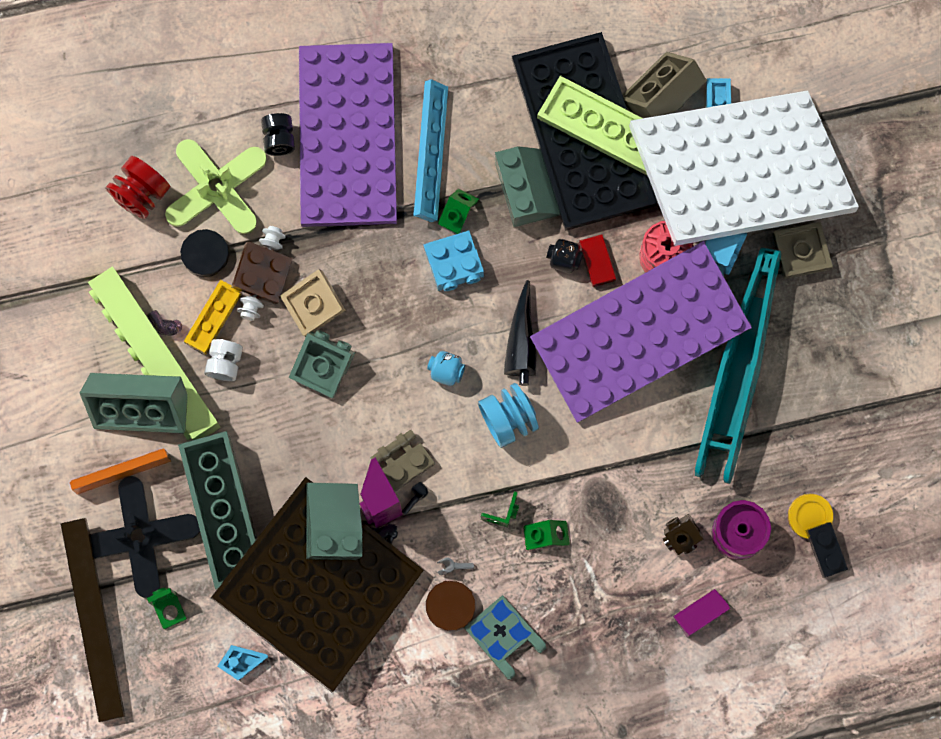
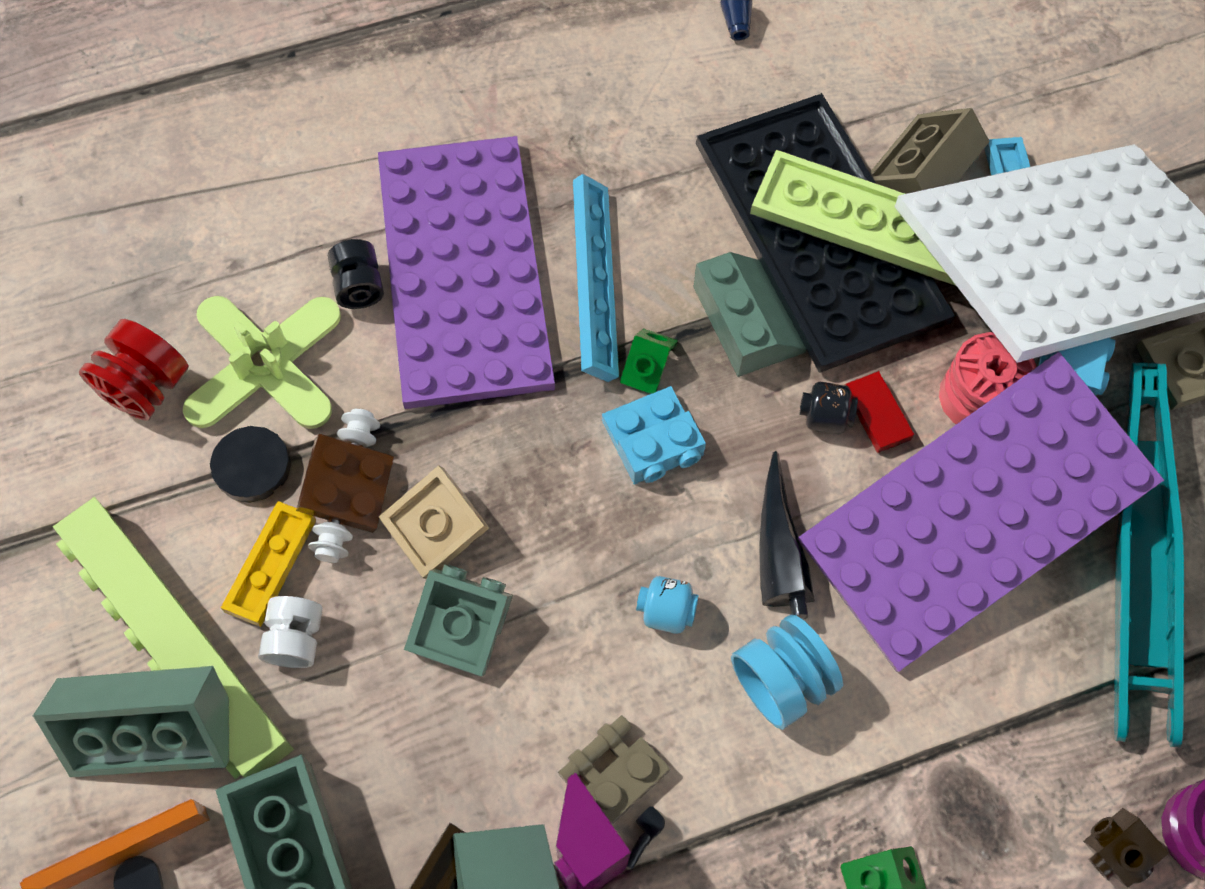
camera: 10 degrees left, 10 degrees down
(164, 327) = (188, 588): clear purple arm -> none
(512, 513) = (819, 843): green bracket -> none

